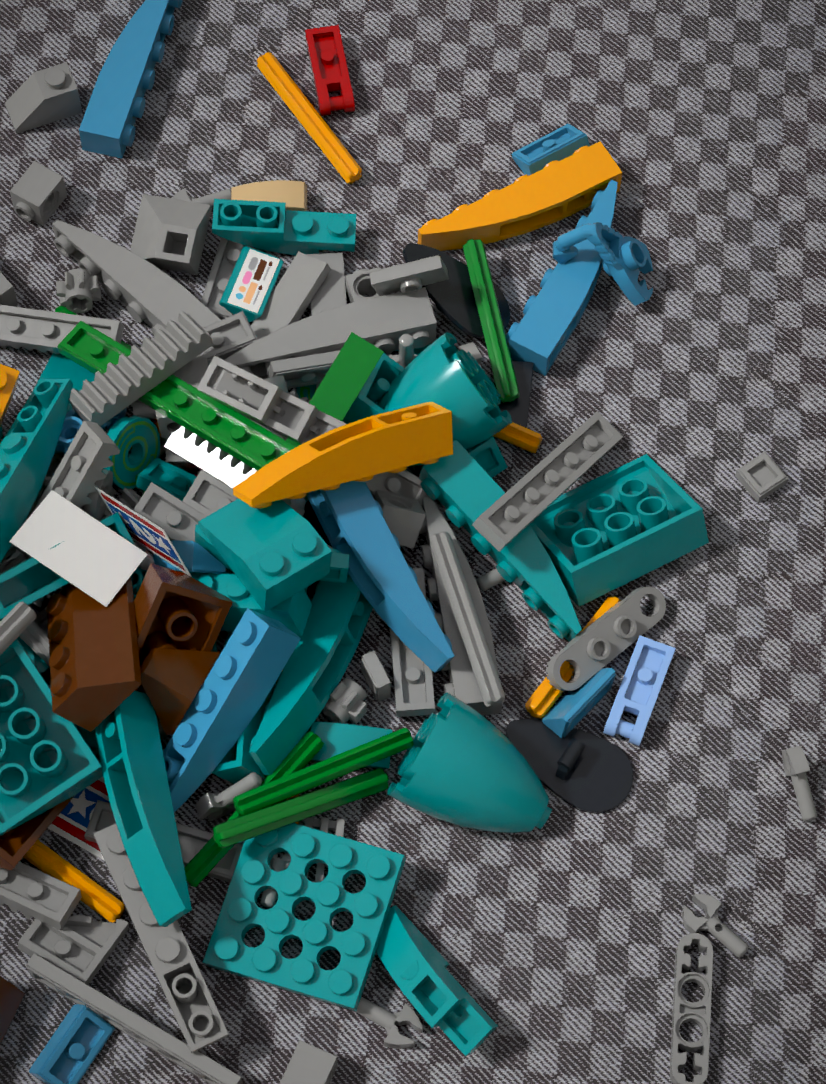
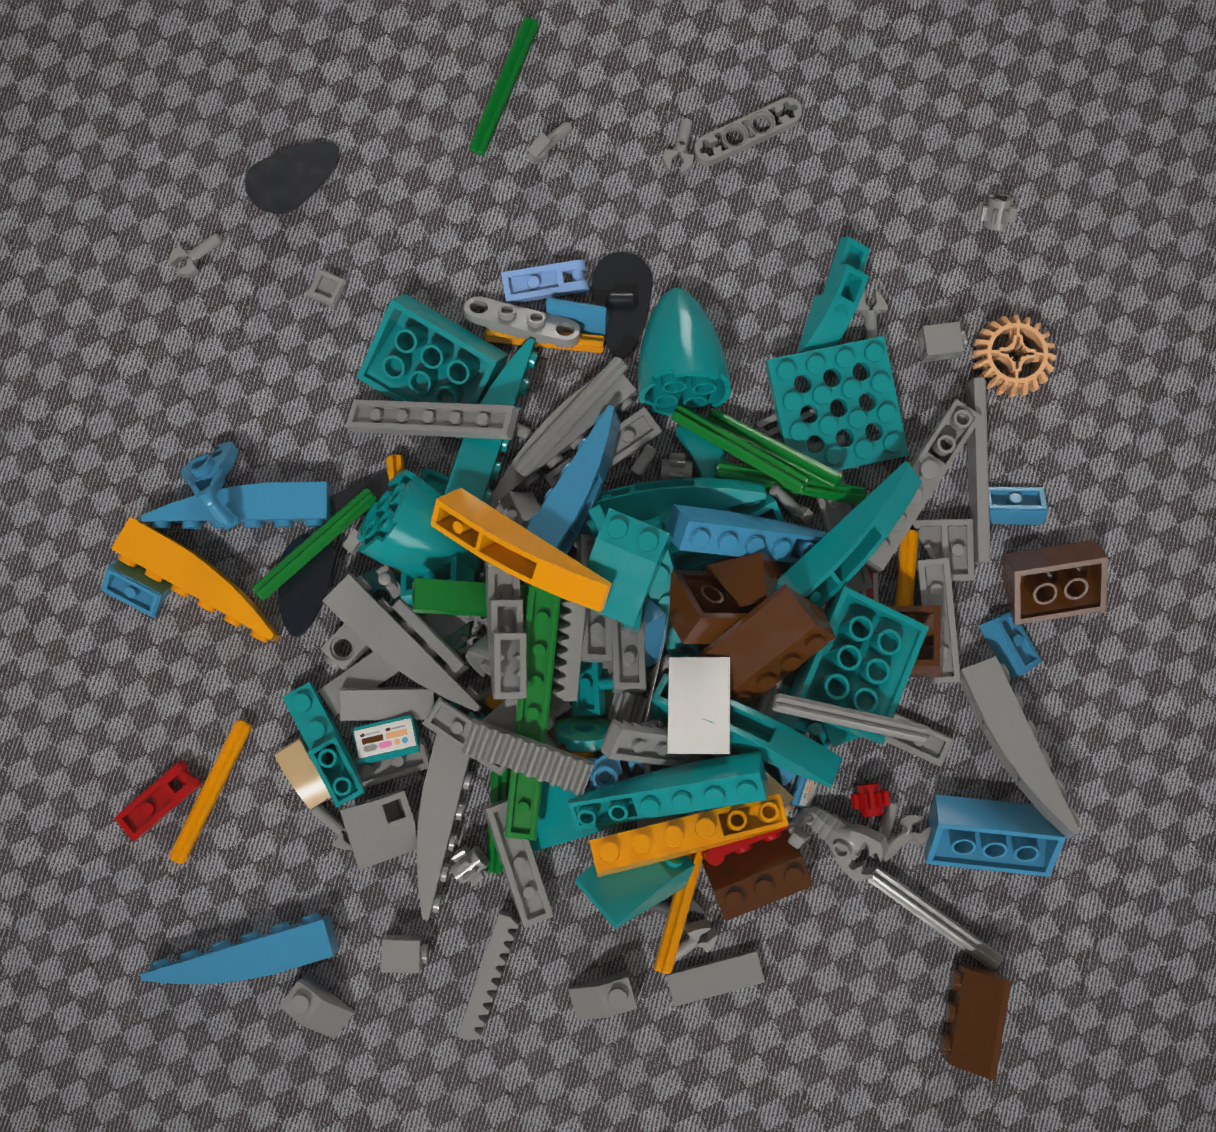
camera: 115 degrees left, 20 degrees up
(409, 276) = (324, 613): light grey plate -> none

